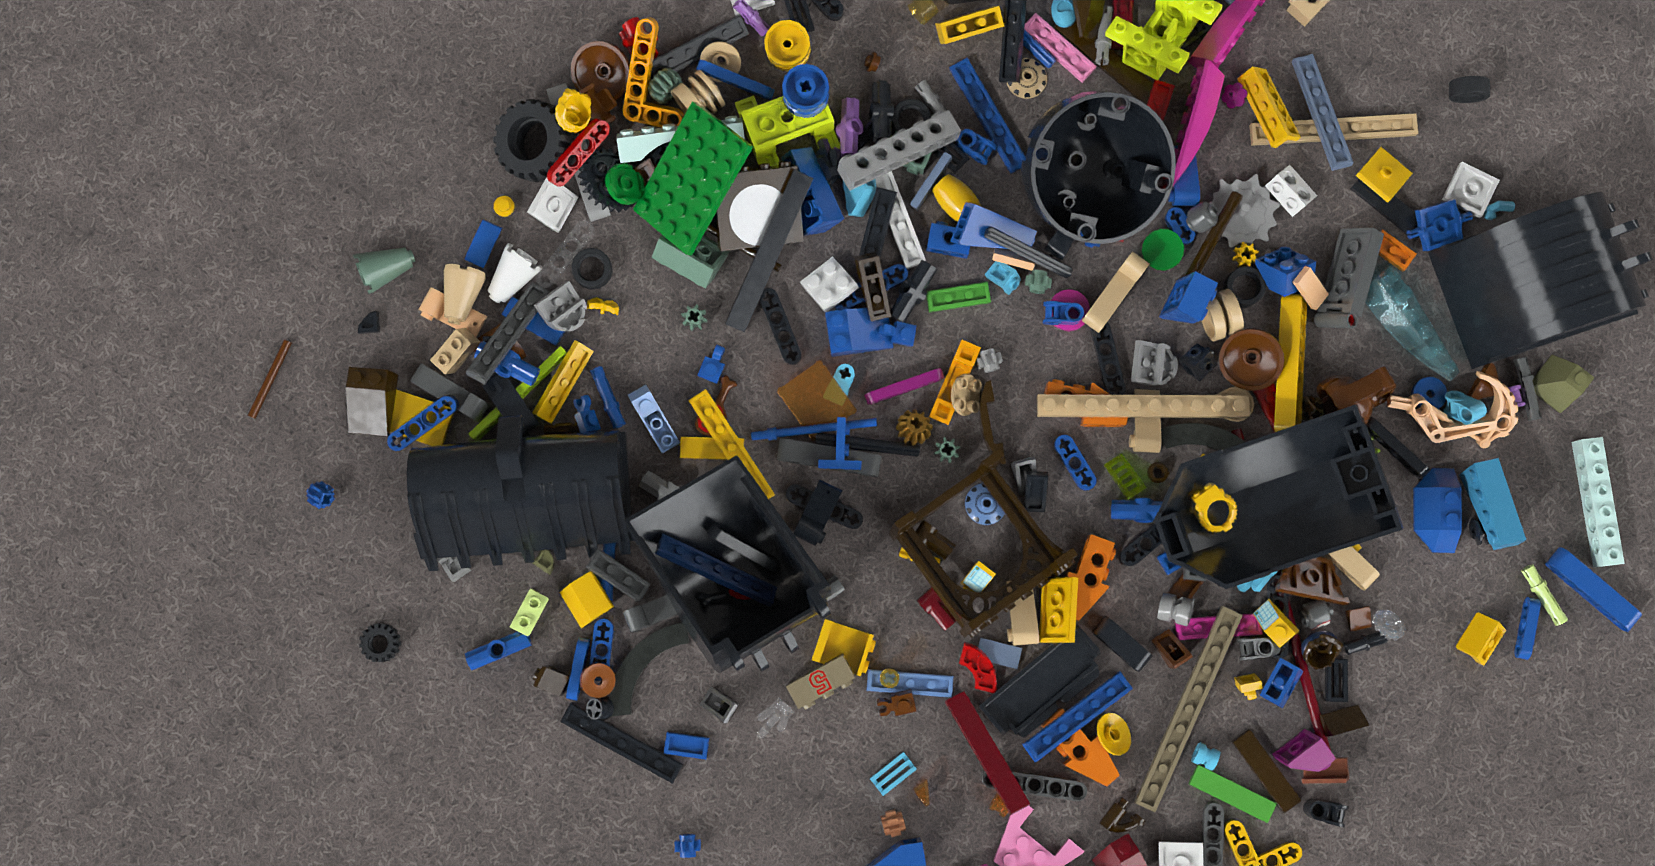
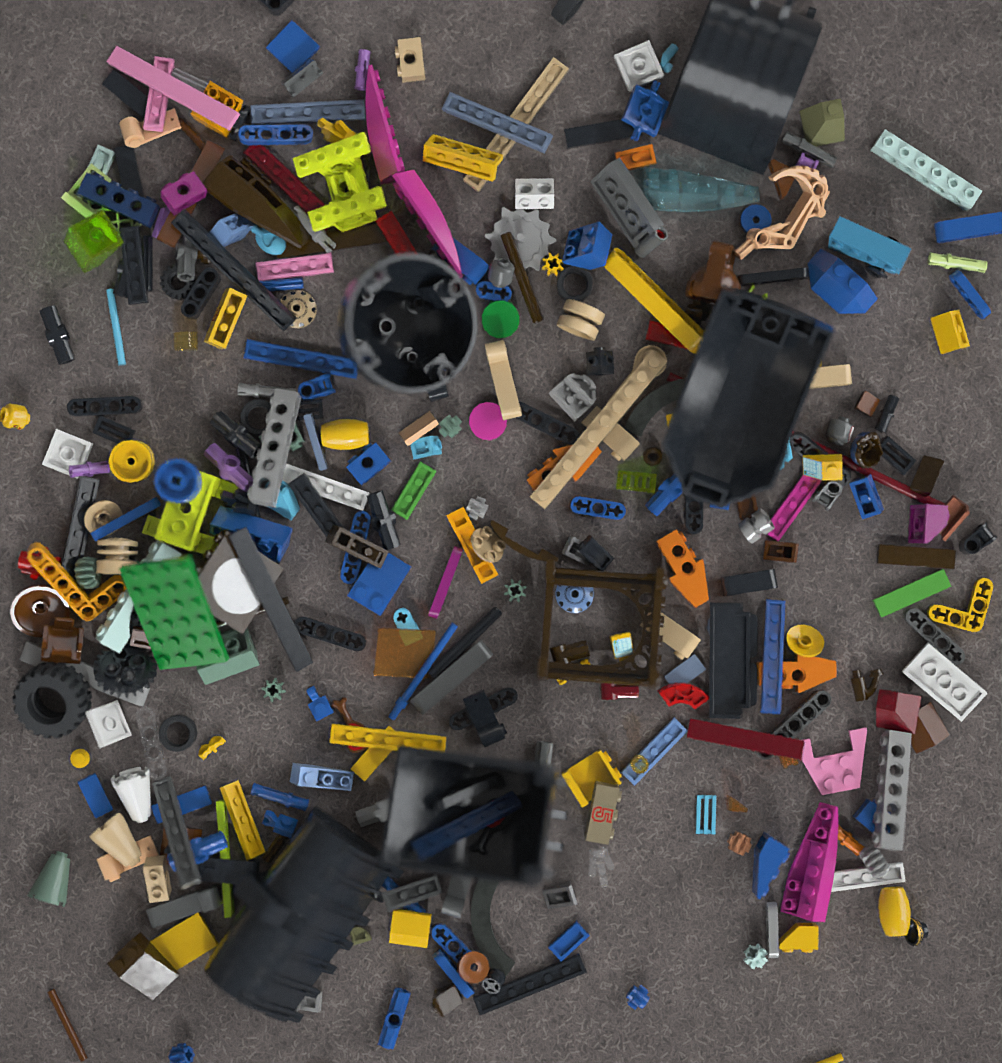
camera: 50 degrees left, 5 degrees up
(370, 323) = (86, 922): black tile -> none
(423, 423) = (190, 943): blue beam -> none
(529, 612) = (386, 976): yellowish green bracket -> none
(562, 308) = (189, 777): light grey slope -> none
(573, 110) = (55, 658): yellow hair -> none
(580, 154) = (91, 677): red beam -> none
(624, 184) = (137, 662): green tile -> none
(829, 284) = (329, 575): white plate -> none
(842, 450) = (455, 666): blue bracket -> none
(872, 62) = (194, 409): reddish brown plate -> none
(900, 703) = (662, 770): reddish brown plate -> none
(901, 333) = (405, 553): blue plate -> none
(914, 427) = (478, 606): pearl gold gear -> none
(976, 219) = (386, 431): slope -> none
(1028, 252) = (424, 417): black axle -> none
(1058, 610) = (690, 608): yellow tile -> none
(1060, 313) = (486, 430): blue piece -> none
(1188, 709) = (830, 574): dark tan plate -> none
(1189, 298) = (552, 333): blue slope -> none
(1205, 498) = (699, 440): yellow piece -> none
(1205, 756) = (871, 590): medium azure wheel -> none
(1238, 96) = (434, 170): magenta plant -> none
(1248, 684) = (849, 519): yellow tile -> none
(1251, 372) = (636, 333): reddish brown dish -> none
(1310, 288) = (614, 241): light nougat tile -> none
(1313, 580) = (817, 414): reddish brown wing -> none
(1384, 174) = (577, 117): yellow plate -> none
(1390, 619) = (884, 383): clear gear -> none
(1464, 407) = (785, 206): medium azure piece -> none

